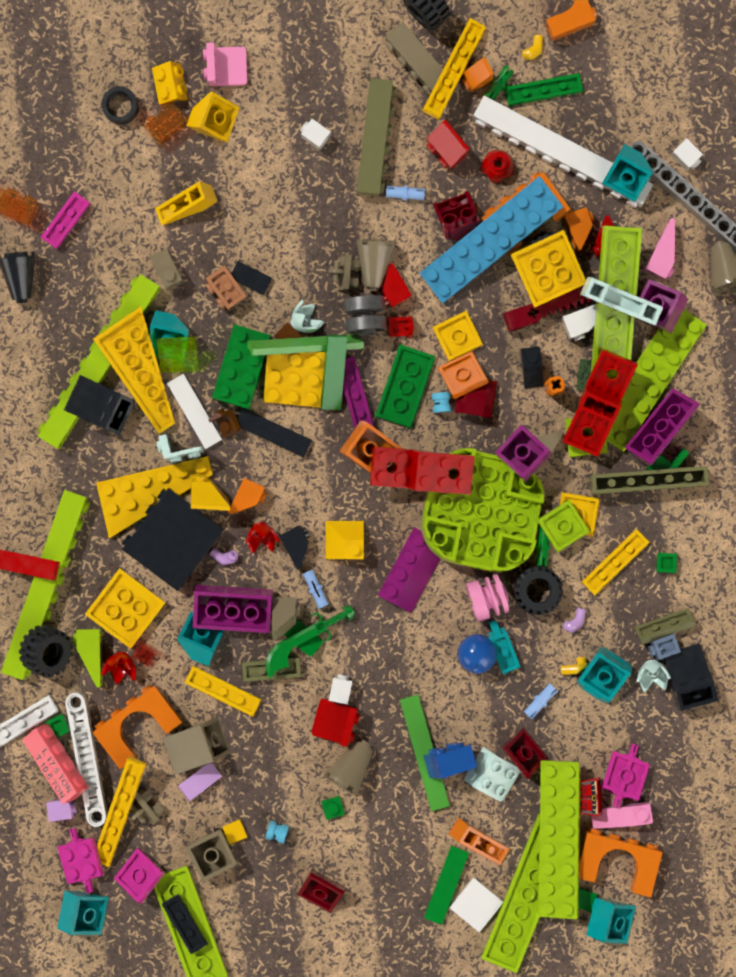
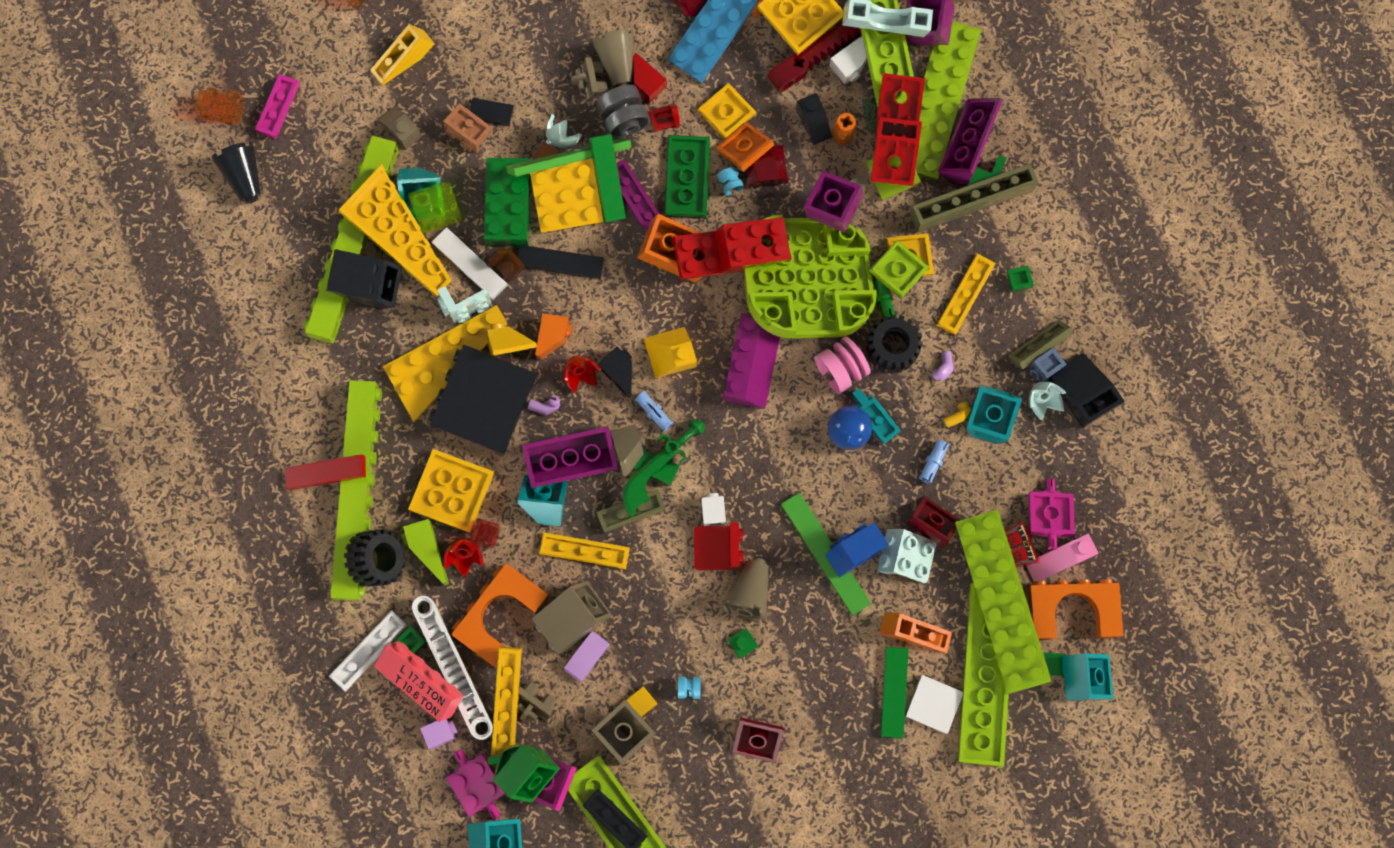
camera: 20 degrees left, 10 degrees down
(119, 864) = (523, 771): none -> green piece

